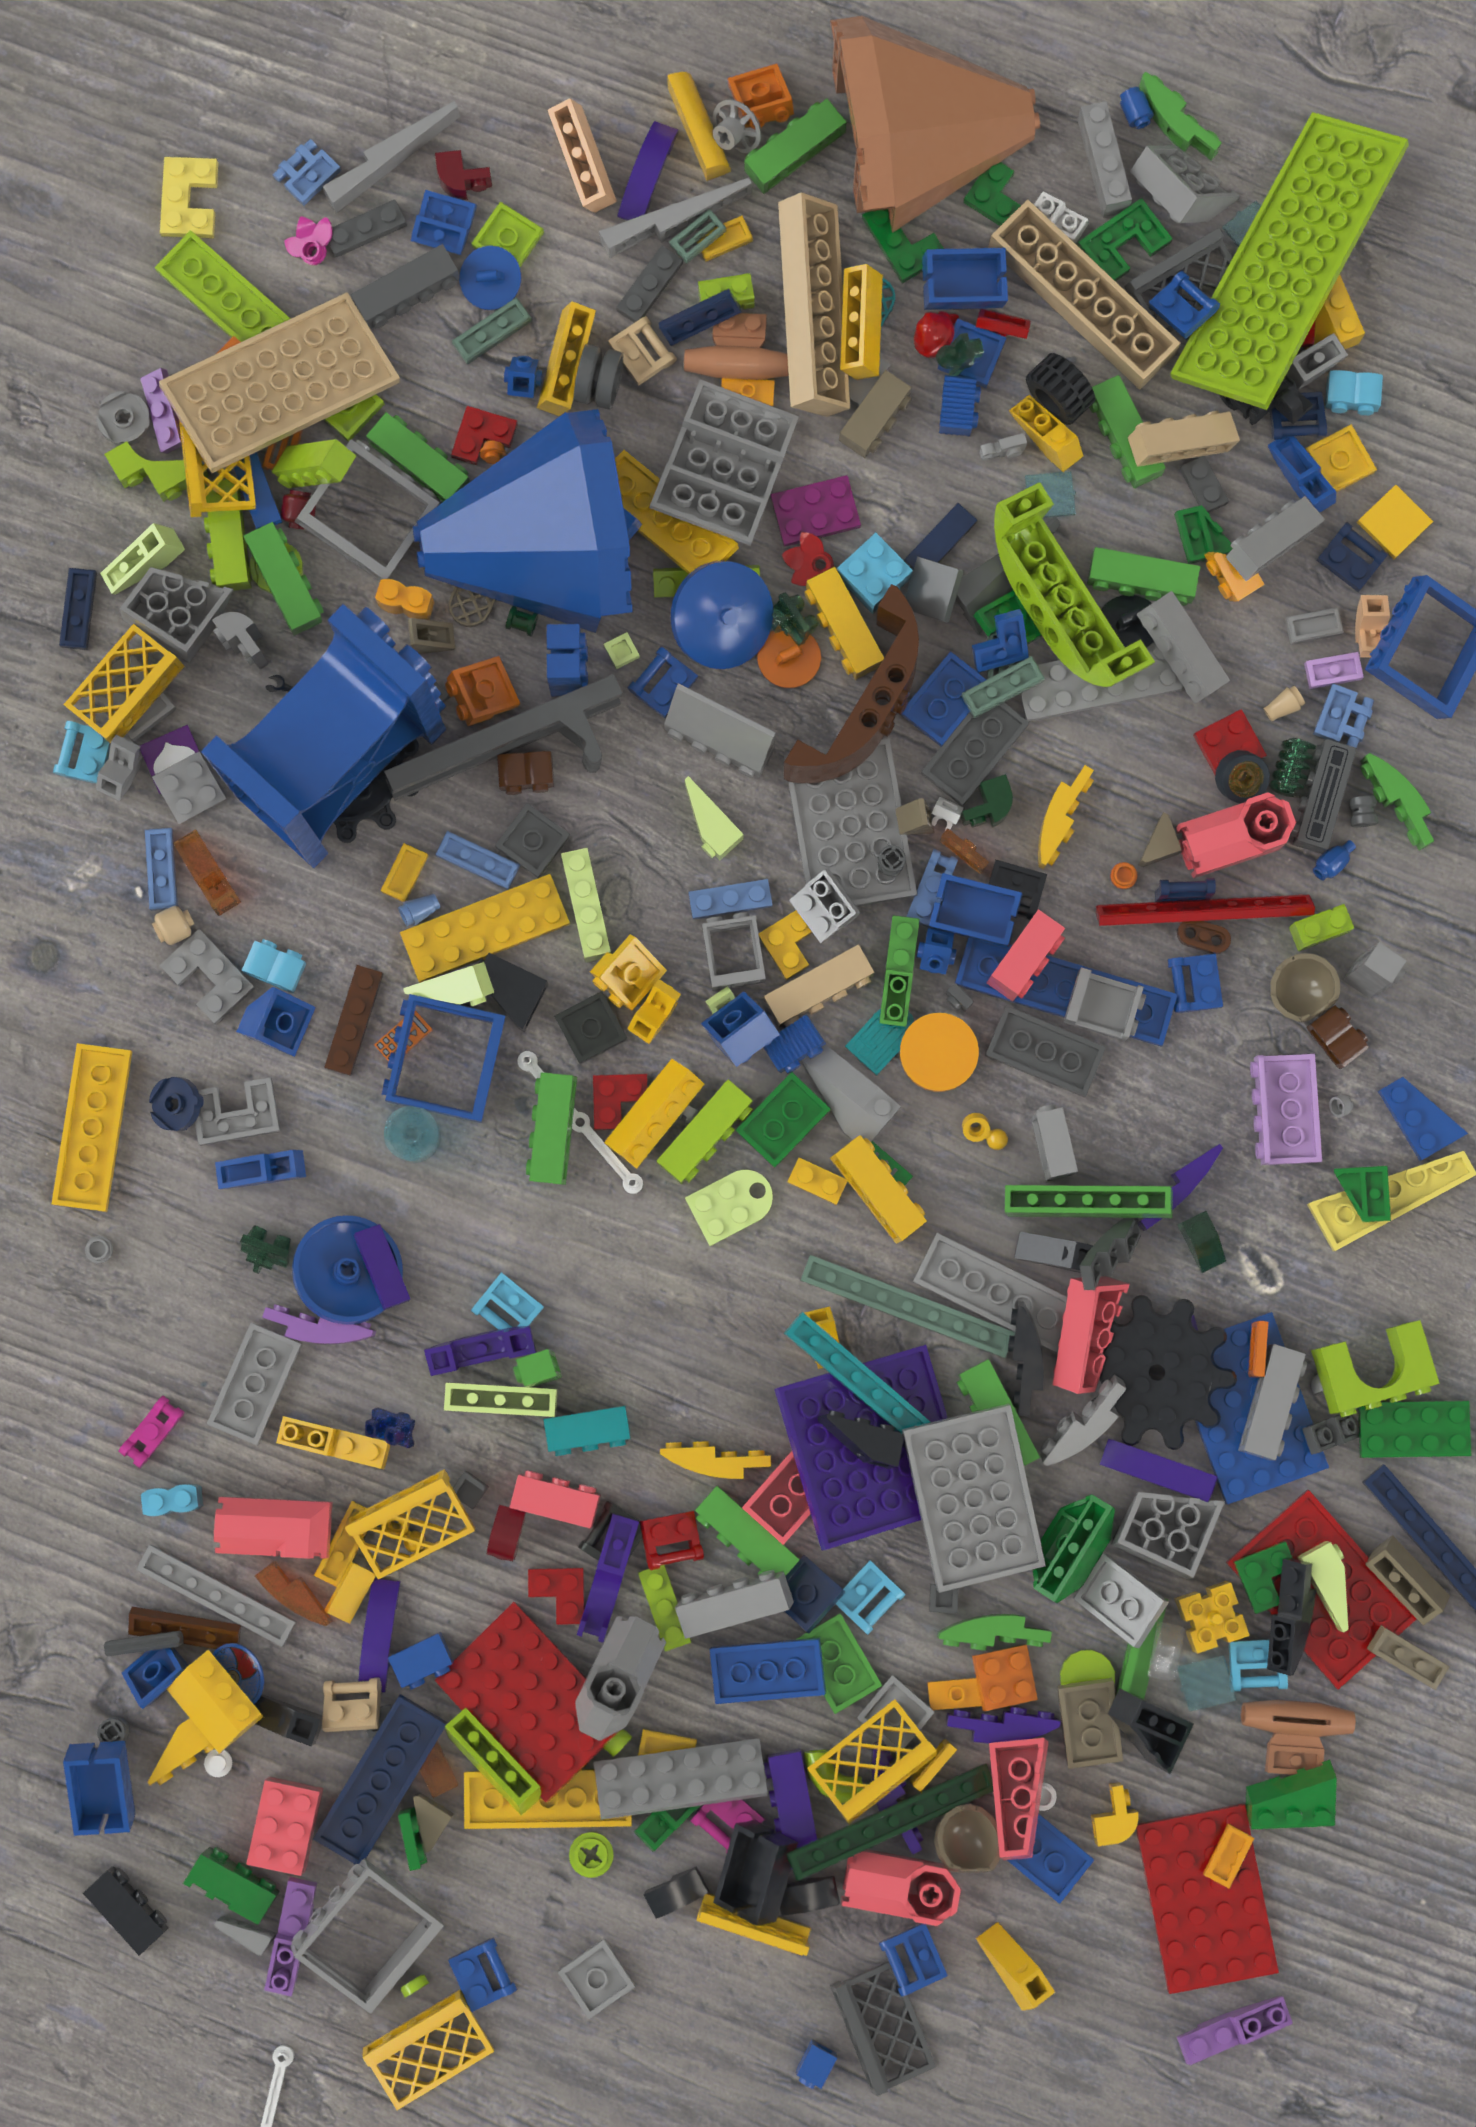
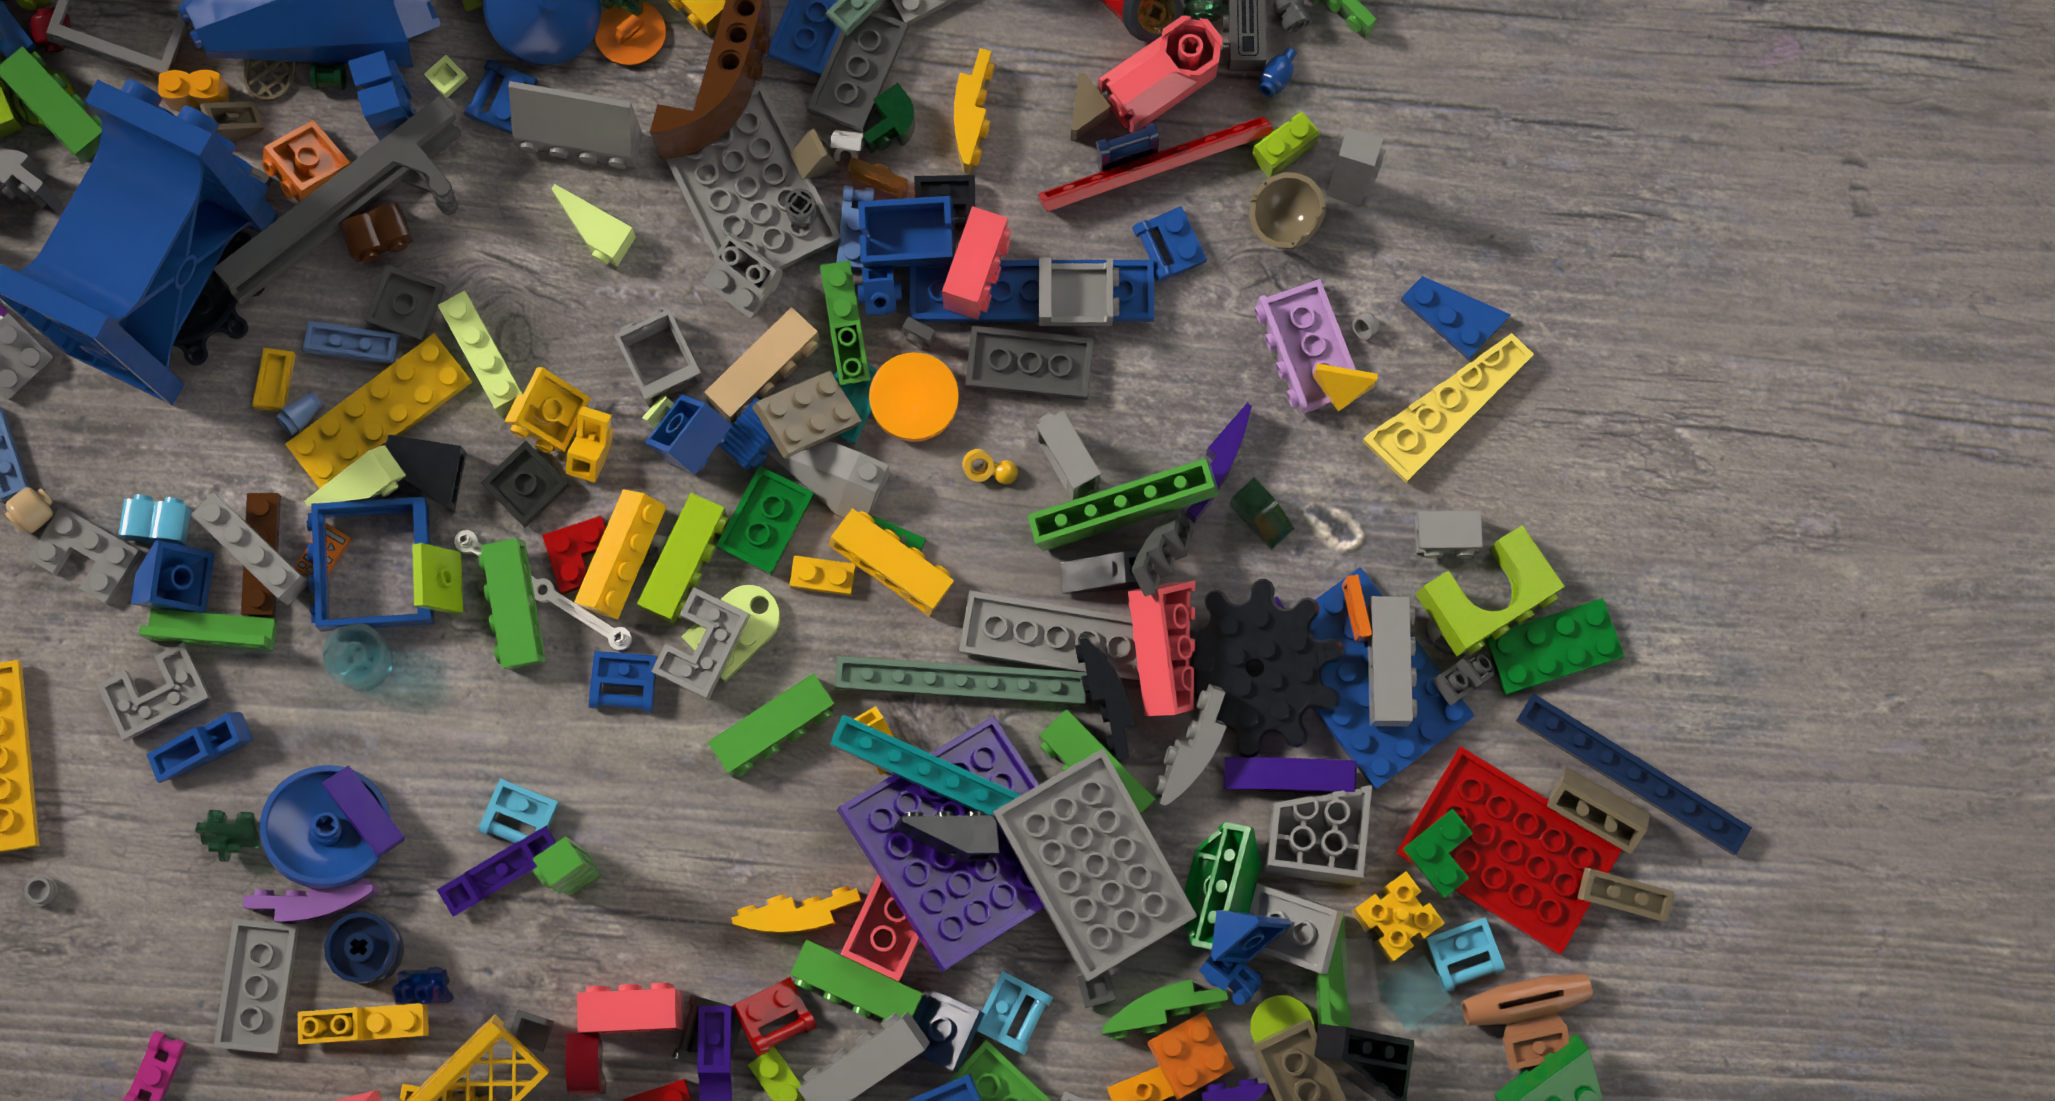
camera: 15 degrees left, 5 degrees down
(189, 1103) = (98, 702): dark blue plate -> none
(207, 872) = (53, 443): clear orange slope -> none
(295, 1072) = (210, 629): none -> bright green fence
(335, 1377) = (345, 945): none -> dark blue wheel
(348, 1016) = (250, 549): none -> light grey brick
(496, 1088) = (437, 578): none -> lime plate
(500, 1399) = (537, 918): yellowish green brick -> none
(587, 1430) = (645, 923): teal brick -> none
(628, 1212) = (622, 670): none -> blue plate
(712, 1217) = (723, 629): none -> light grey plate
(730, 899) = (639, 302): medium blue plate -> none
(739, 1296) = (772, 725): none -> bright green brick
(781, 942) = (709, 332): yellow plate -> none
(845, 1041) = (806, 414): none -> dark tan plate
(1059, 1620) = (1234, 975): none -> blue plate
(1080, 1593) = (1244, 935): none -> blue slope
(1123, 875) = (1058, 154): orange plate -> none
(1203, 934) = (1162, 189): reddish brown plate -> none
(1294, 1617) = (1487, 890): black slope -> none
(1305, 1153) = (1343, 384): none -> yellow slope
(1329, 1580) = (1509, 832): yellowish green slope -> none
(1338, 1036) = (1339, 253): reddish brown brick -> none
(1355, 1306) = (1448, 533): none -> light grey brick
(1367, 1191) = (1421, 405): green wing -> none

